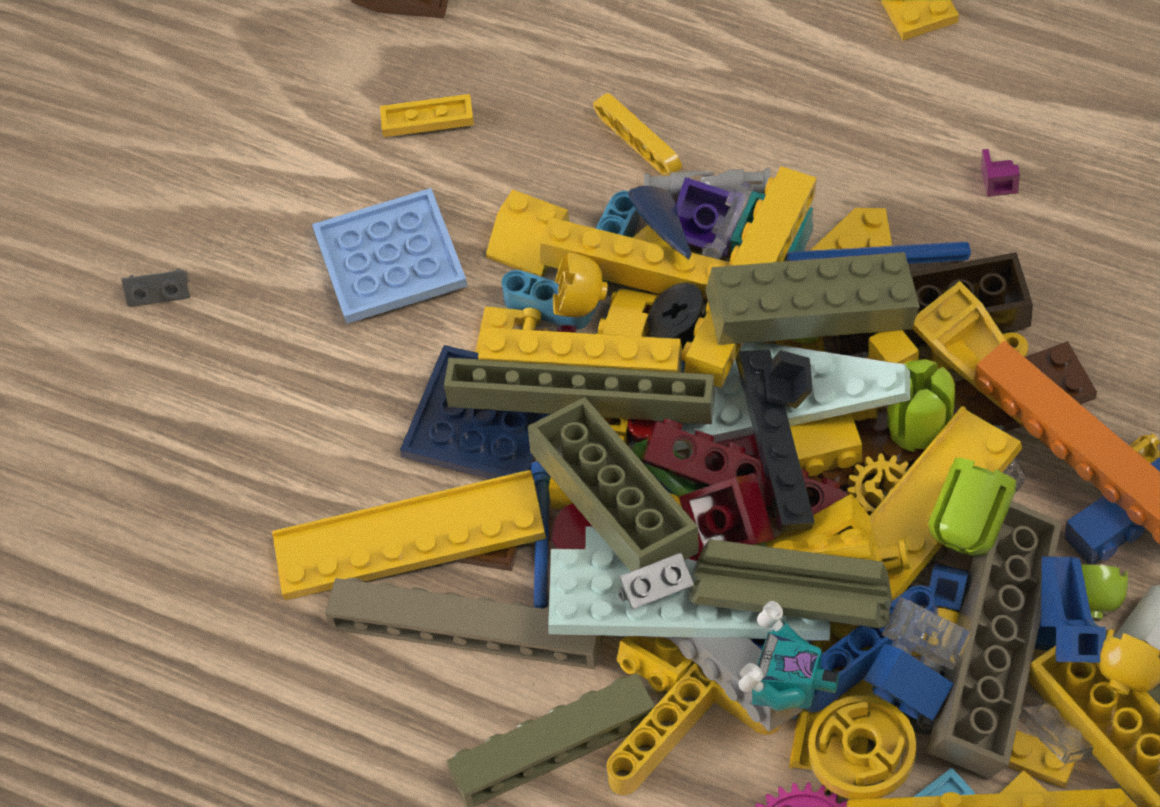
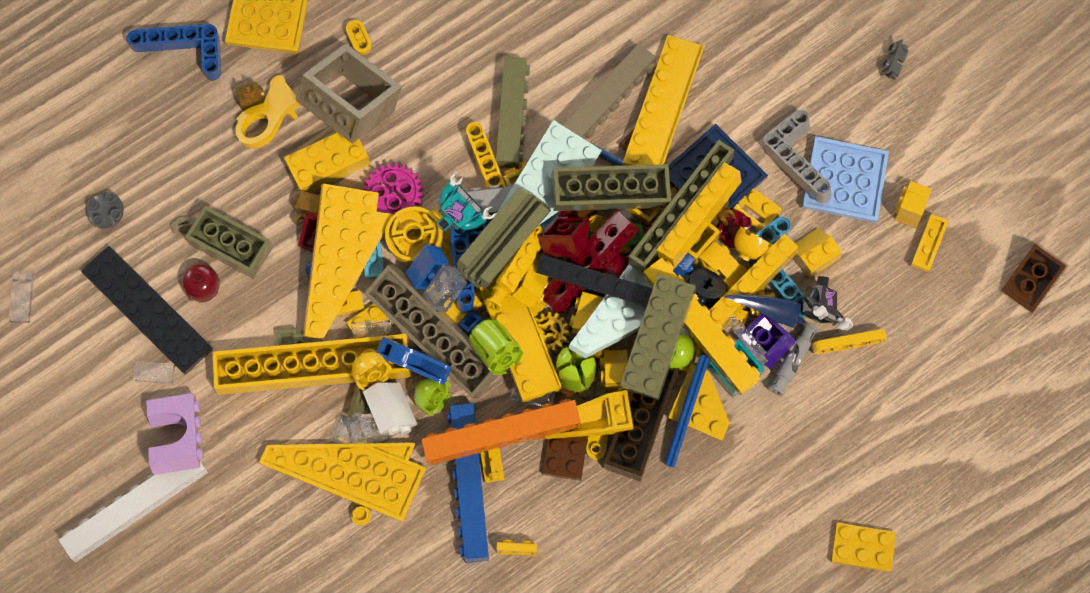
camera: 115 degrees right, 15 degrees up
(382, 154) = (912, 204): none -> yellow brick
(397, 320) = (794, 159): none -> light grey beam
(613, 176) = (821, 304): none -> black torso
(655, 581) = (543, 176): hinge -> none
(788, 379) = (618, 298): black panel -> none
(999, 176) = (709, 513): magenta panel -> none

